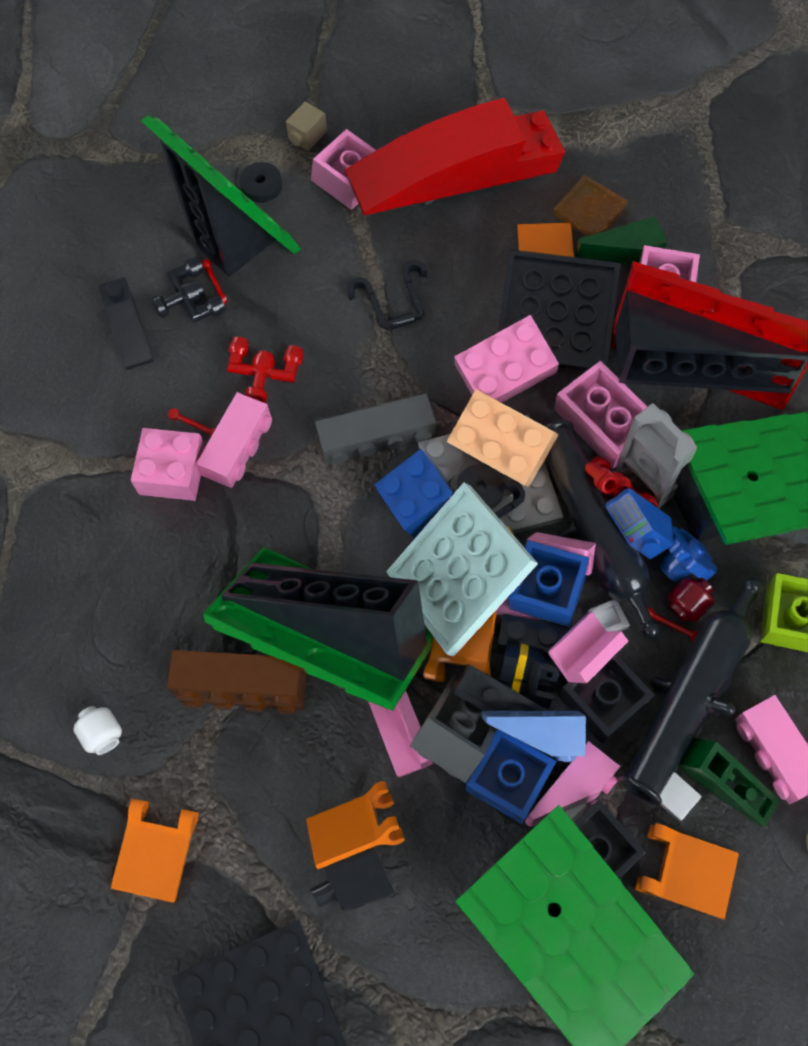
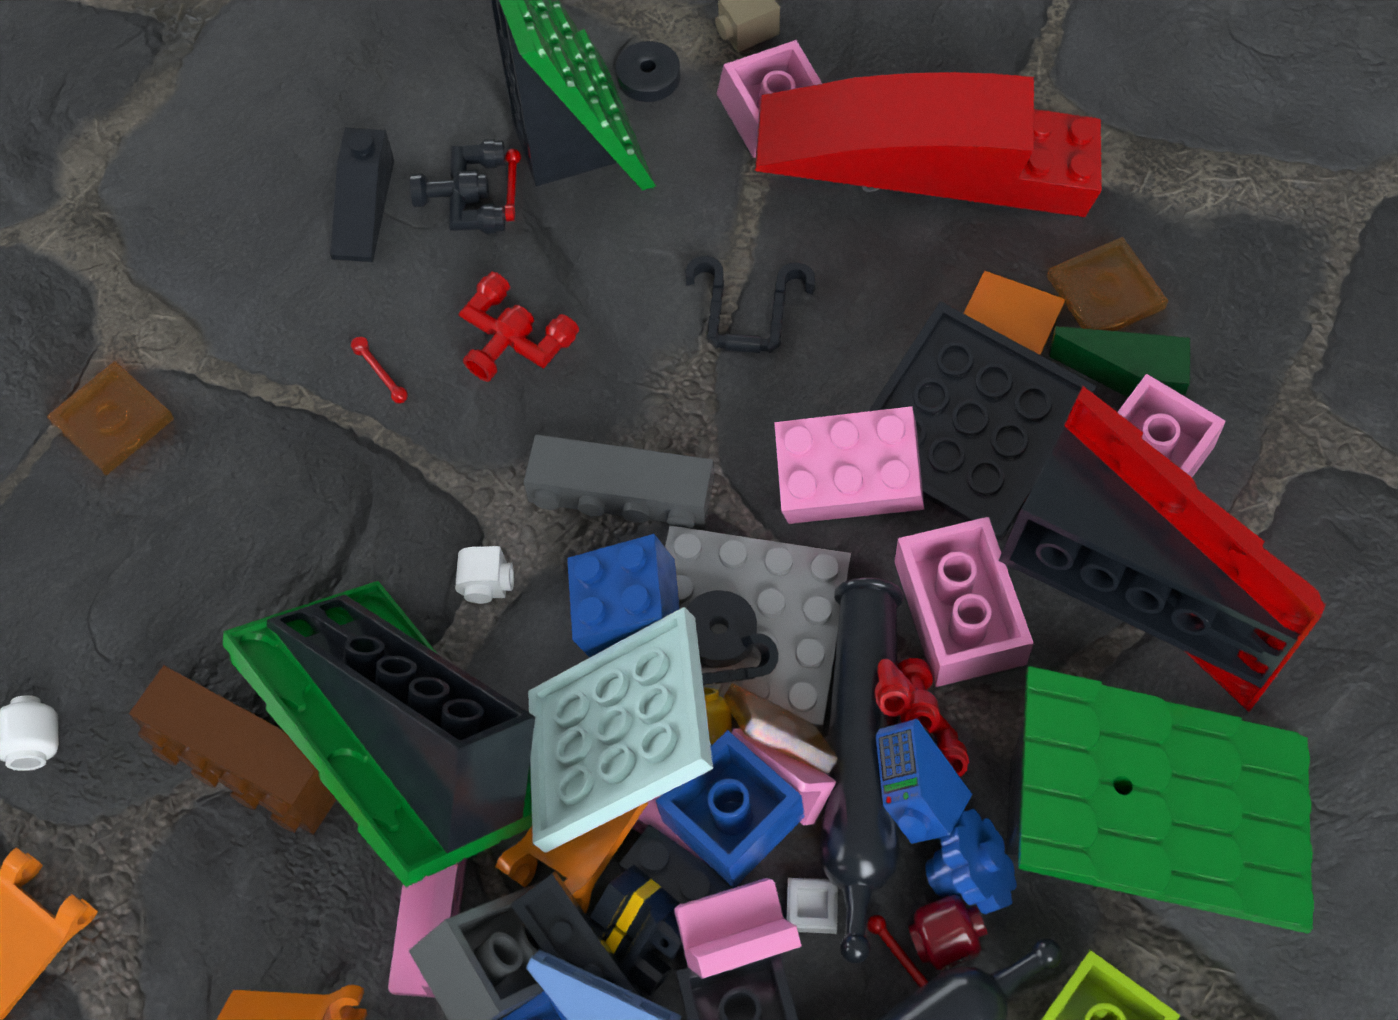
camera: 25 degrees right, 5 degrees down
(41, 521) = (110, 417): none -> clear orange tile
(167, 464) = (311, 411): bright pink brick -> none
(234, 440) = (417, 415): bright pink brick -> none
(324, 516) = (483, 574): none -> white plate
(502, 438) = (780, 570): light nougat brick -> none
(547, 528) = (779, 728): none -> clear orange tile
(656, 452) = (988, 687): light grey piece -> none

